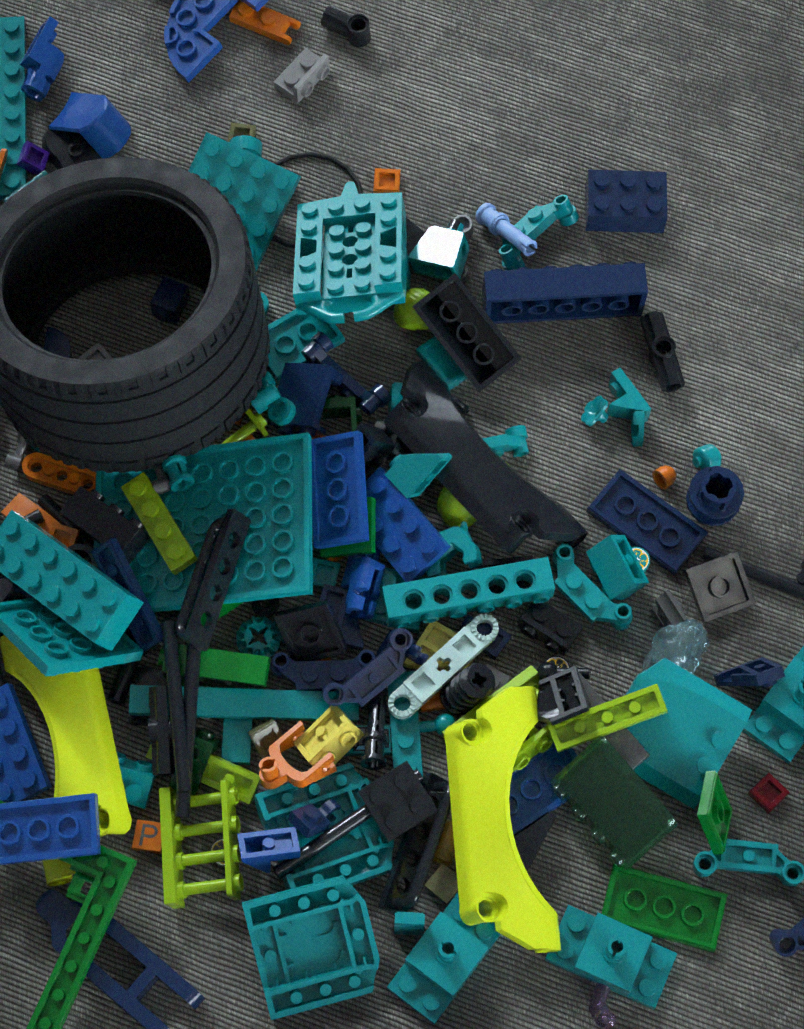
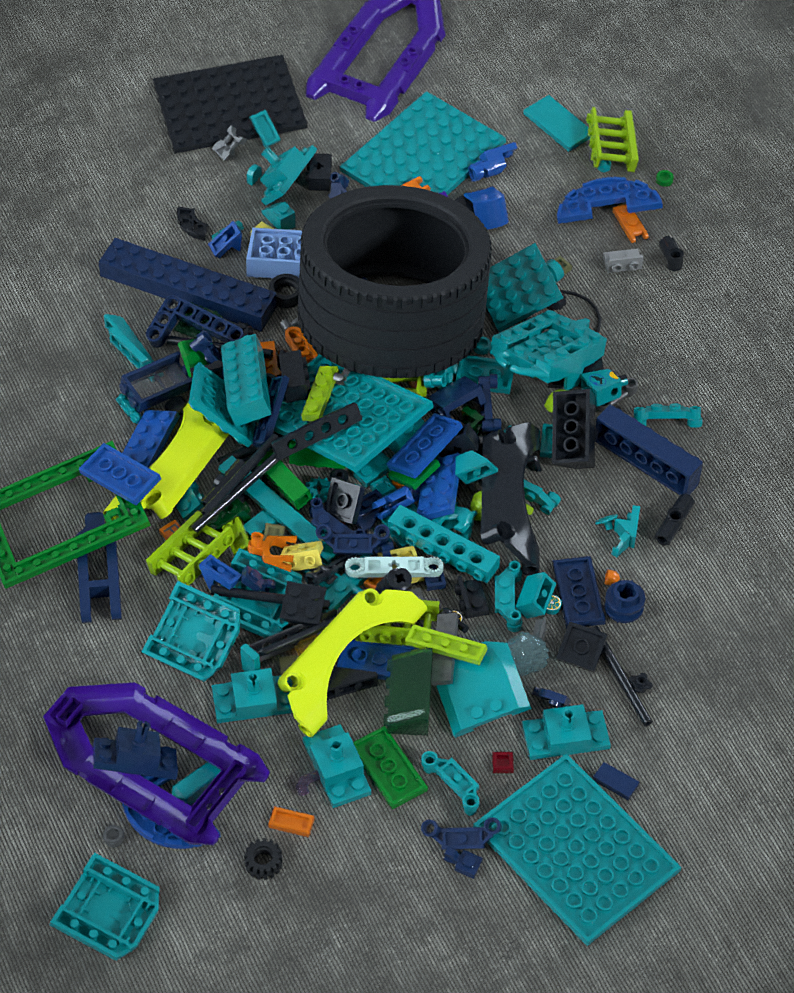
camera: 45 degrees right, 15 degrees down
(178, 473) = (353, 377): teal bush -> none
(282, 411) = (437, 393): teal tile -> none
(386, 180) = (614, 339): orange tile -> none
(500, 224) = (649, 397): light blue pin -> none
(561, 697) = (437, 619): black slope -> none
(626, 201) = (734, 436): dark blue brick -> none
(706, 456) = (648, 587): teal piece -> none
(714, 812) = (458, 737): green tile -> none

